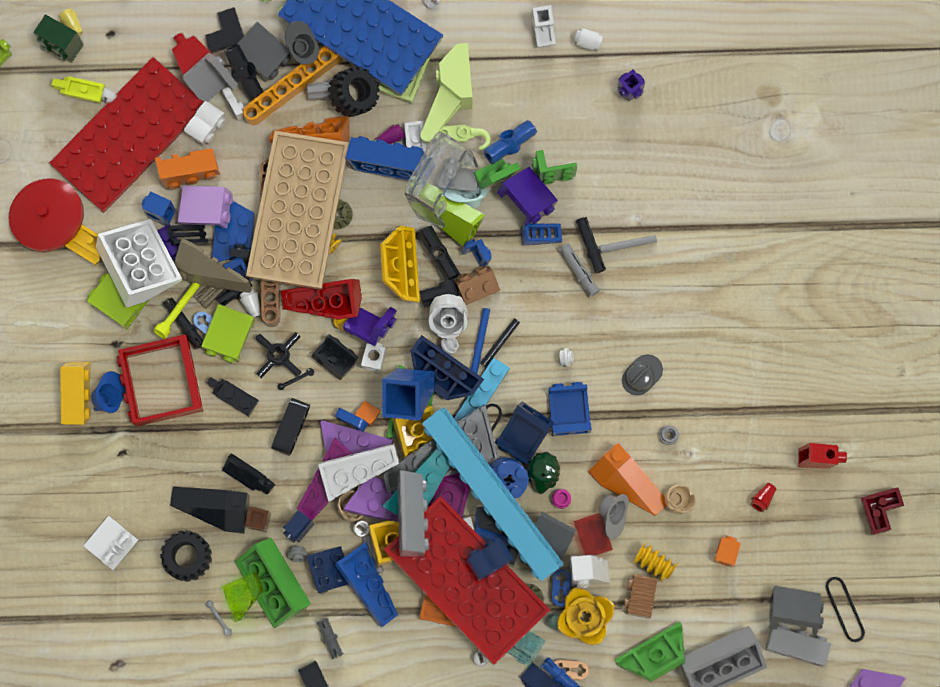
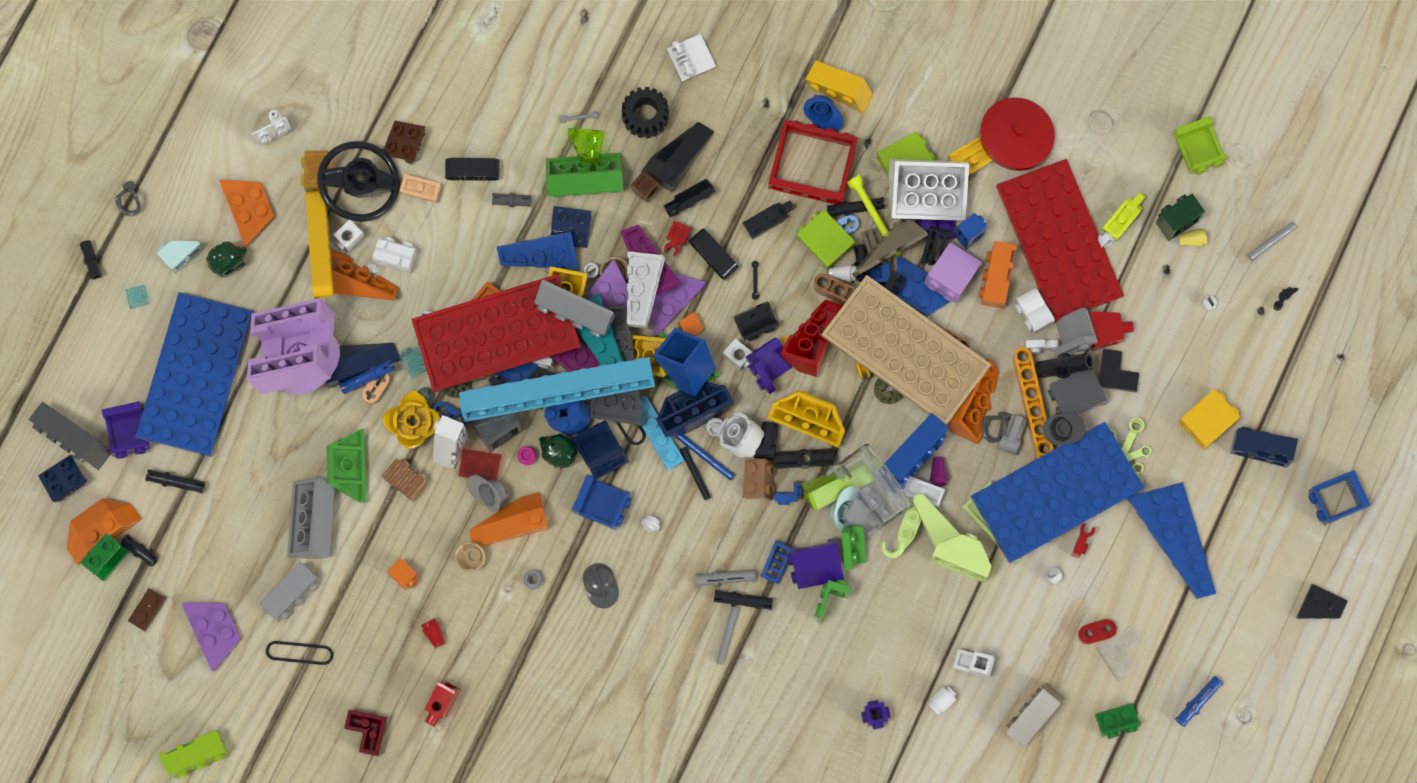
camera: 115 degrees right, 0 degrees up
(284, 360) = (787, 267): black bar -> none
(288, 467) = (678, 236): none -> red plate
(297, 527) = (619, 215): dark blue brick -> none
(297, 554) = (597, 206): light grey plate -> none
(313, 107) = (1001, 416): none -> dark grey piece
(351, 419) = (693, 306): blue beam -> none
(366, 89) = (1005, 444): black tyre -> none
(489, 559) = (501, 358): dark blue brick -> none
(510, 142) = (877, 575): blue piece -> none
(655, 563) = (427, 505): yellow piece -> none
(796, 608) = (320, 604): dark grey panel -> none

